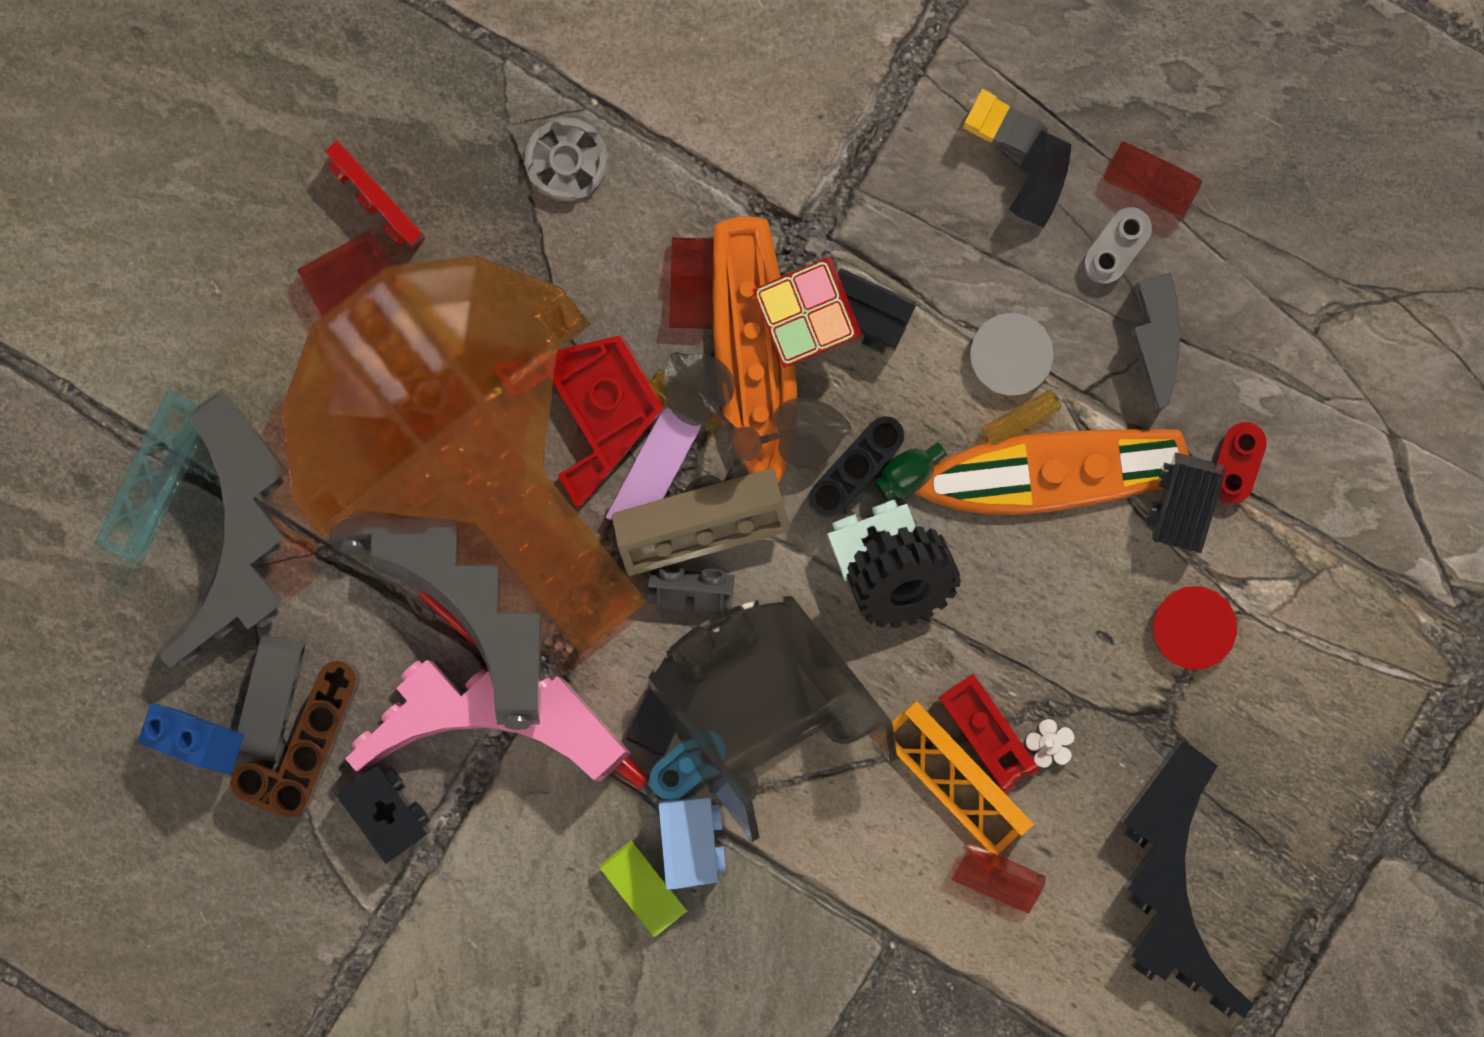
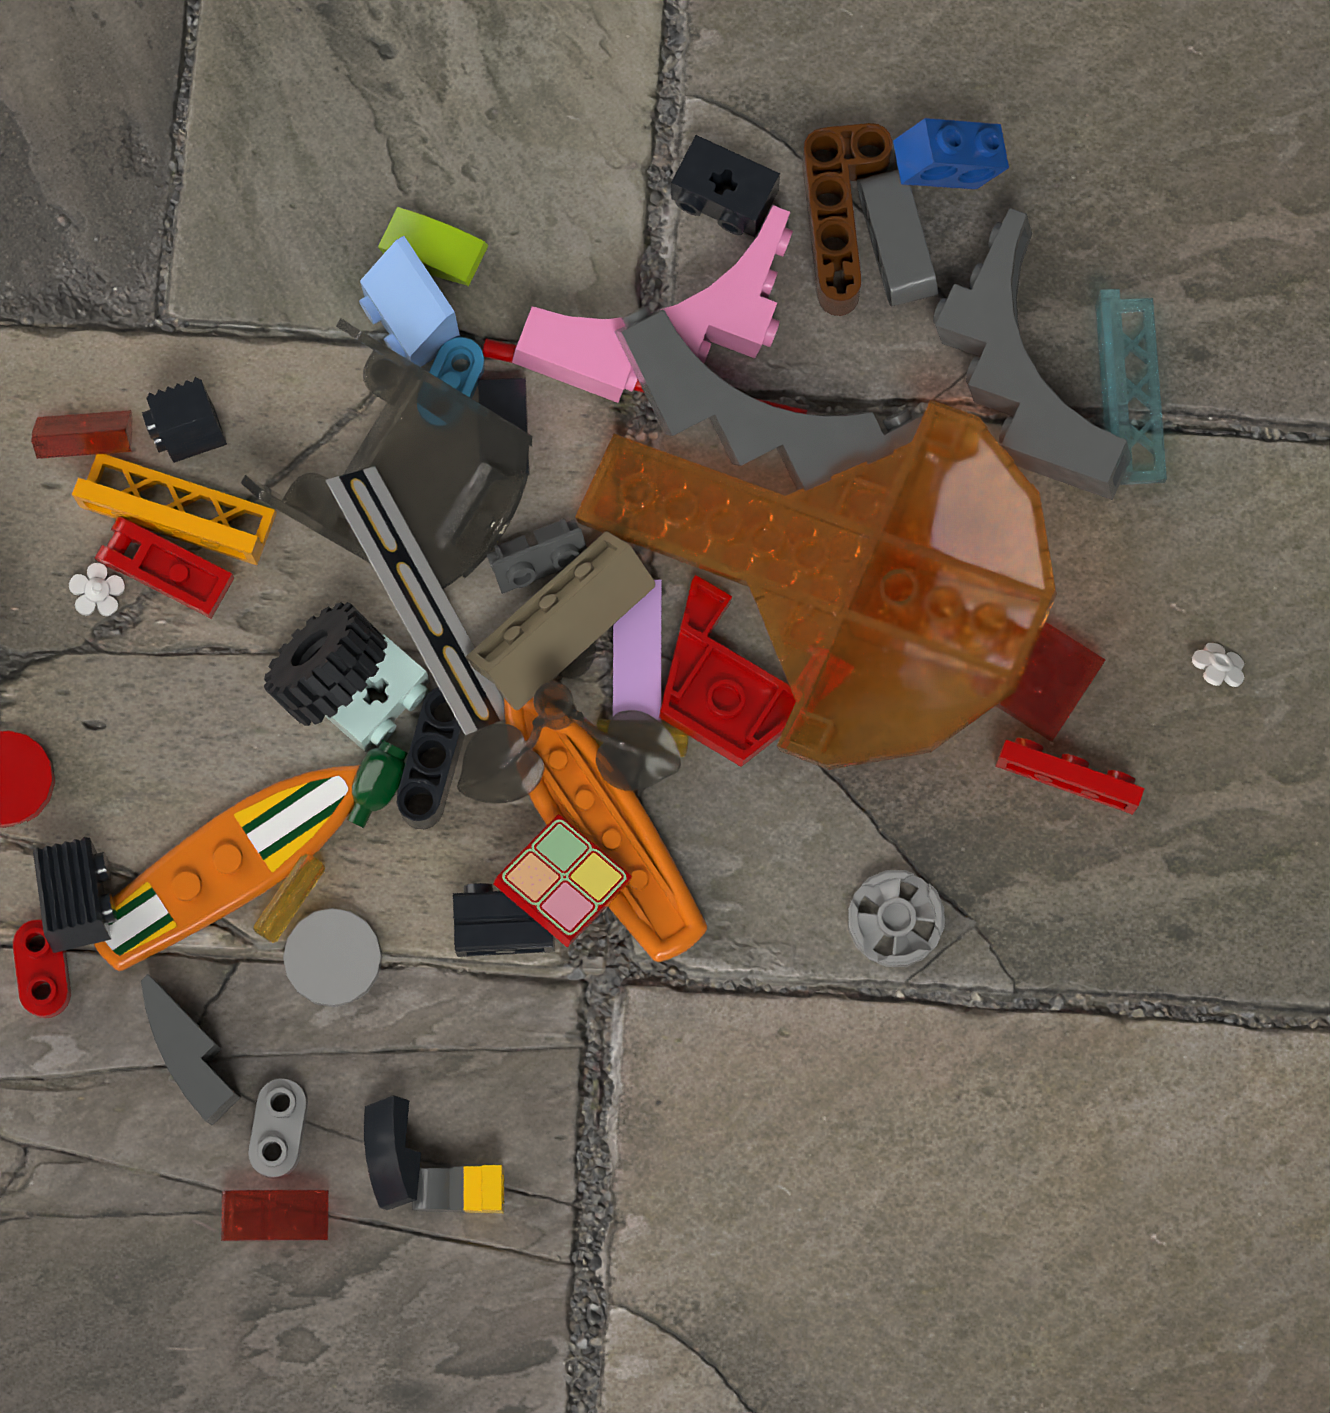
camera: 155 degrees right, 10 degrees down
(209, 220) = (1219, 665): none -> white plant
(691, 283) = (700, 858): clear red slope -> none
(804, 596) = (417, 597): none -> sticker
(916, 837) = (183, 421): none -> black brick

